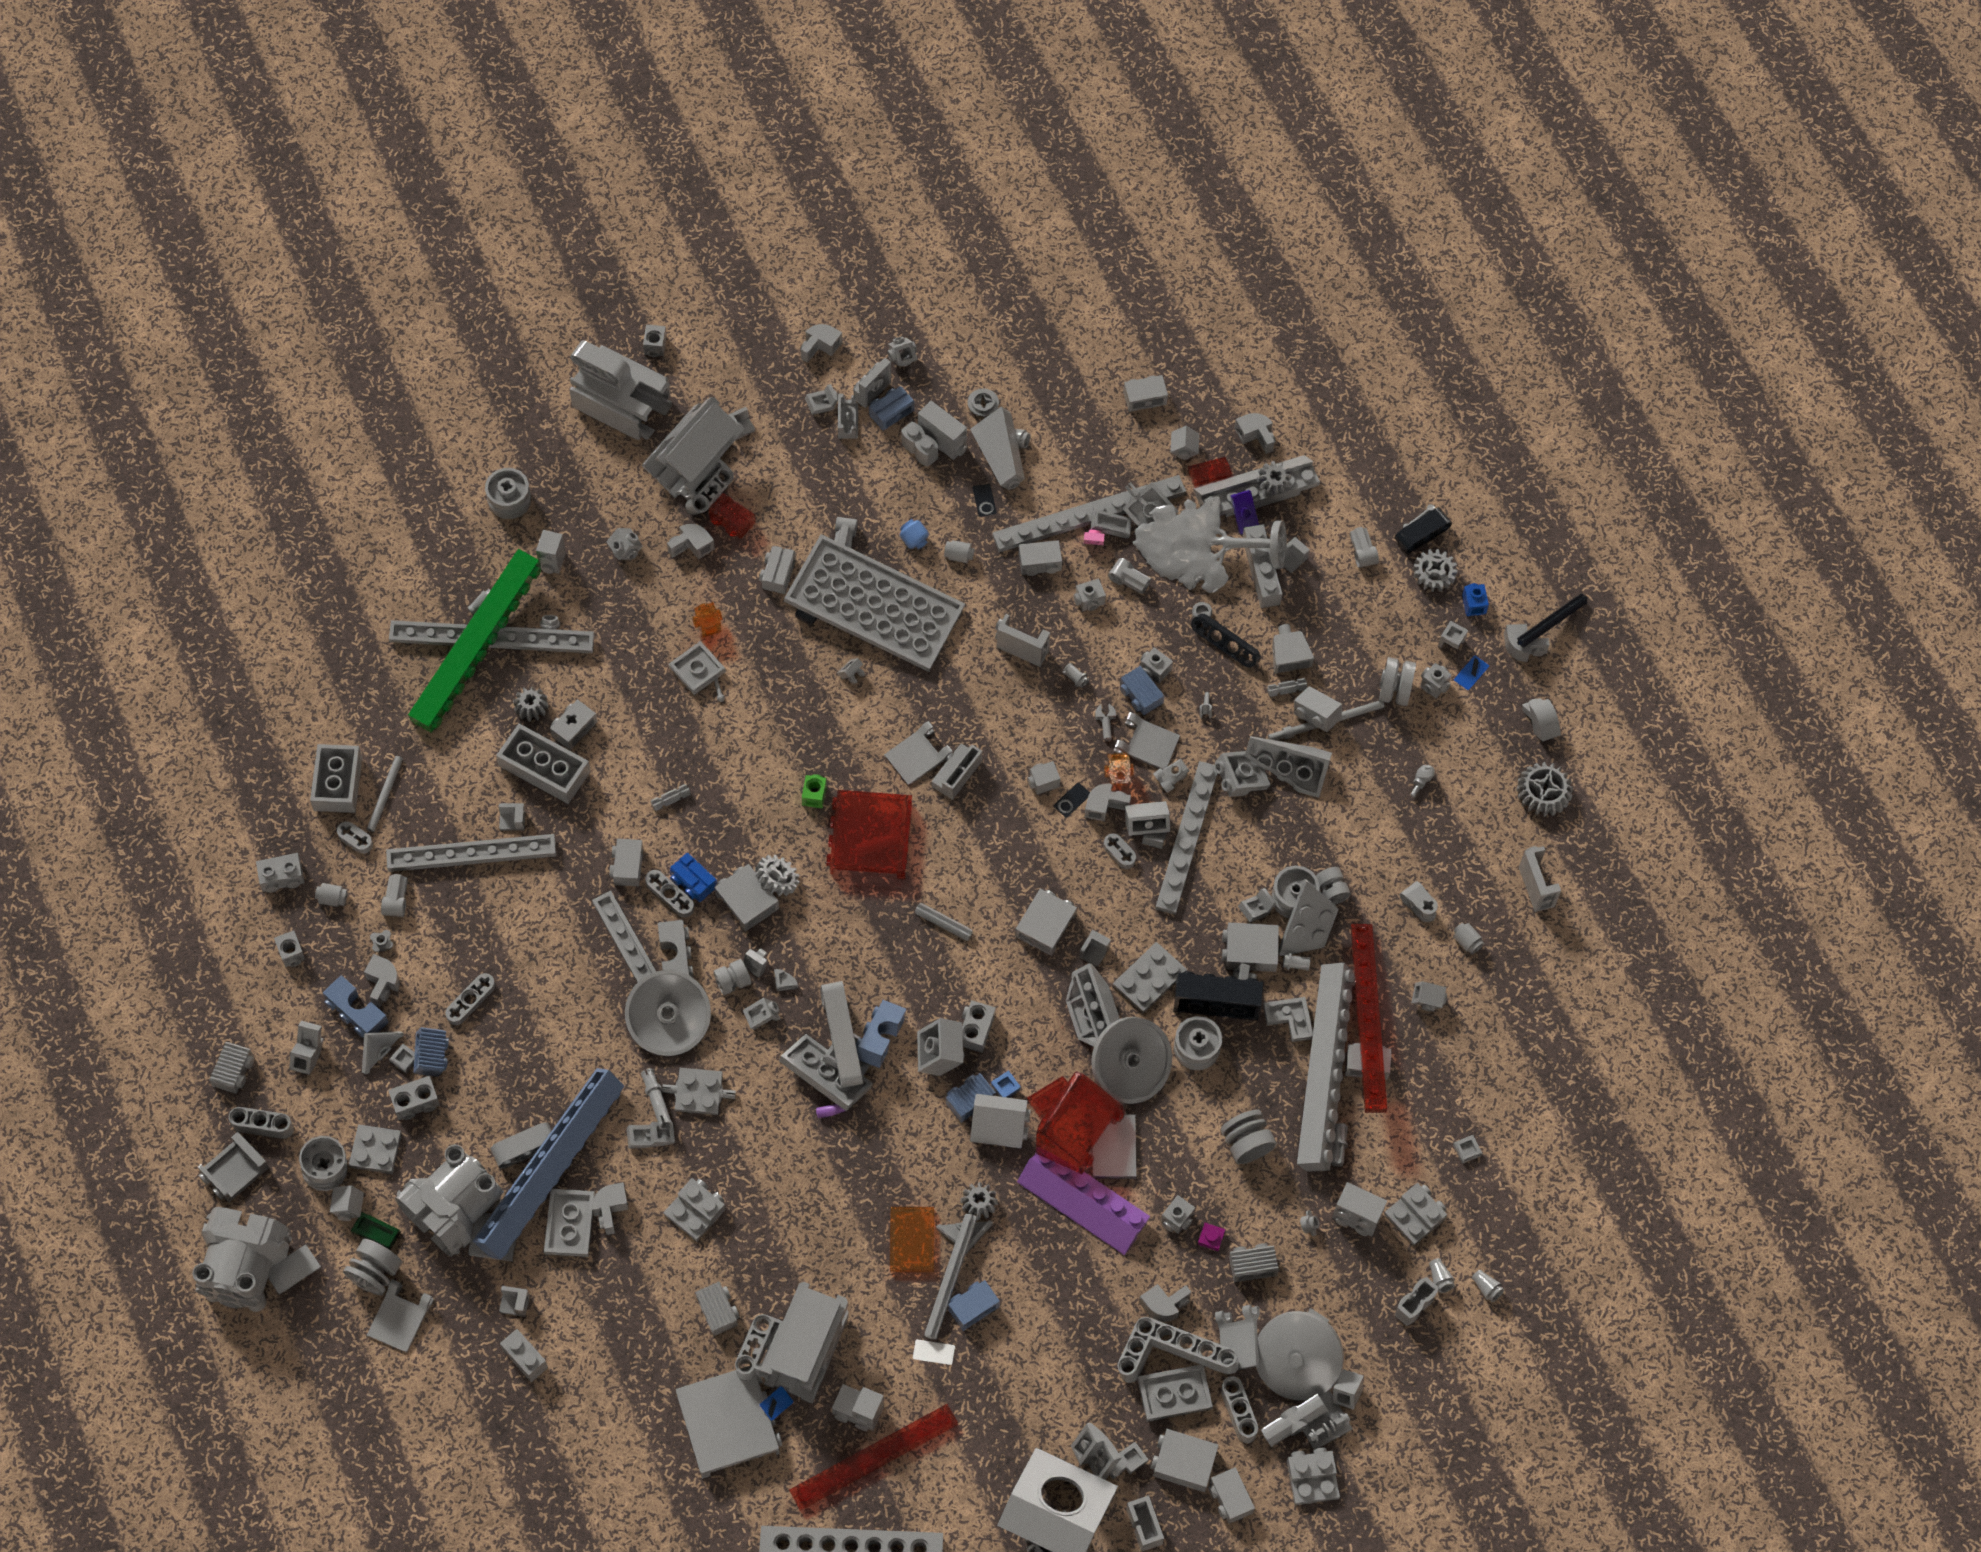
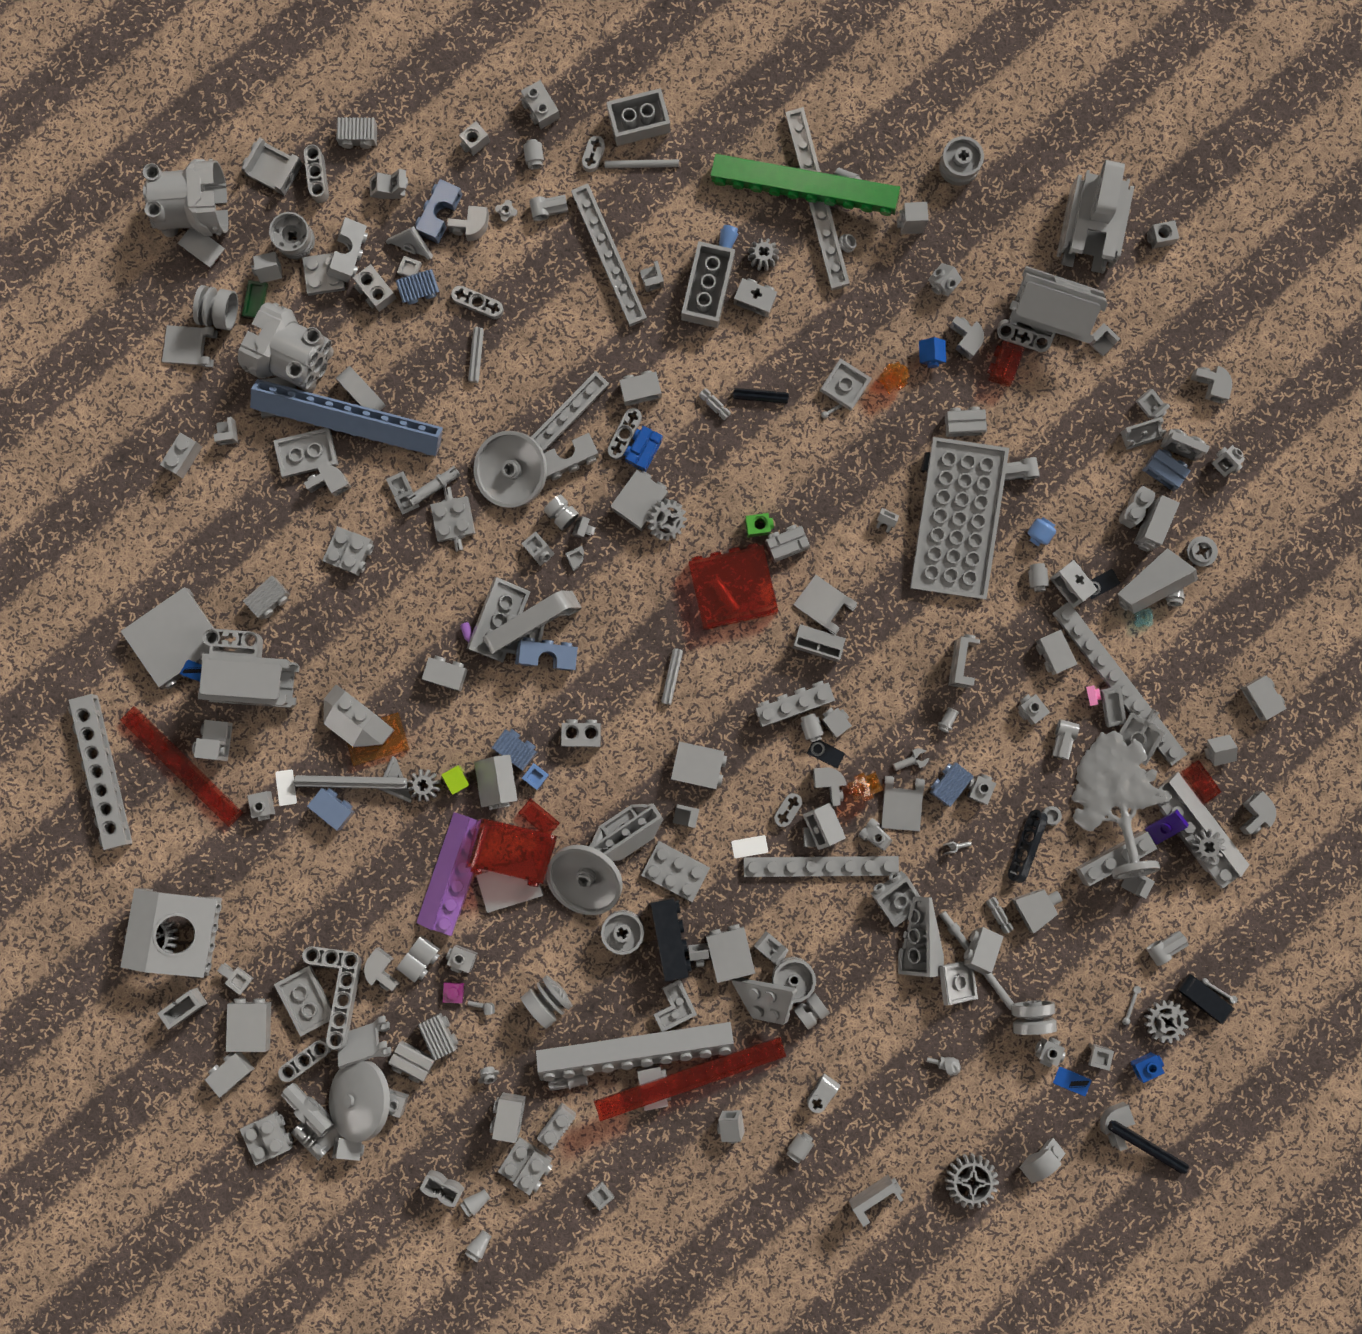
camera: 75 degrees right, 20 degrees up
(349, 1101) = (352, 235): none -> light grey arch
(497, 732) = (728, 236): none -> medium blue cone
(527, 1017) = (475, 357): none -> light grey axle
(678, 751) = (760, 395): none -> black axle
(695, 577) = (932, 352): none -> blue brick
(843, 767) = (787, 543): none -> light grey brick
(865, 1145) = (444, 673): none -> light grey brick
(881, 1251) = (353, 720): none -> light grey wedge
(940, 1047) = (547, 710): light grey brick -> none
(946, 1378) = (261, 805): none -> light grey brick
(976, 521) = (1073, 584): none -> light grey brick
(984, 1166) = (455, 779): none -> lime panel
(1013, 810) = (790, 706): none -> light grey brick
(1031, 467) = (1148, 621): none -> clear light blue plate
(1042, 802) = (812, 727): none -> light grey brick
(1096, 1450) = (233, 944): light grey slope -> none
(1146, 900) = (749, 846): none -> white sticker
(1165, 1259) = (418, 959): none -> light grey brick
(1238, 1204) = (488, 1008): none -> light grey hand
(1274, 1296) = (411, 1061): none -> light grey brick
(1296, 962) = (729, 997): light grey pin -> none
(1343, 742) = (957, 983): none -> light grey plate
(1382, 1167) = (556, 1126): none -> light grey brick
(1397, 589) = (1136, 989): none -> light grey hinge

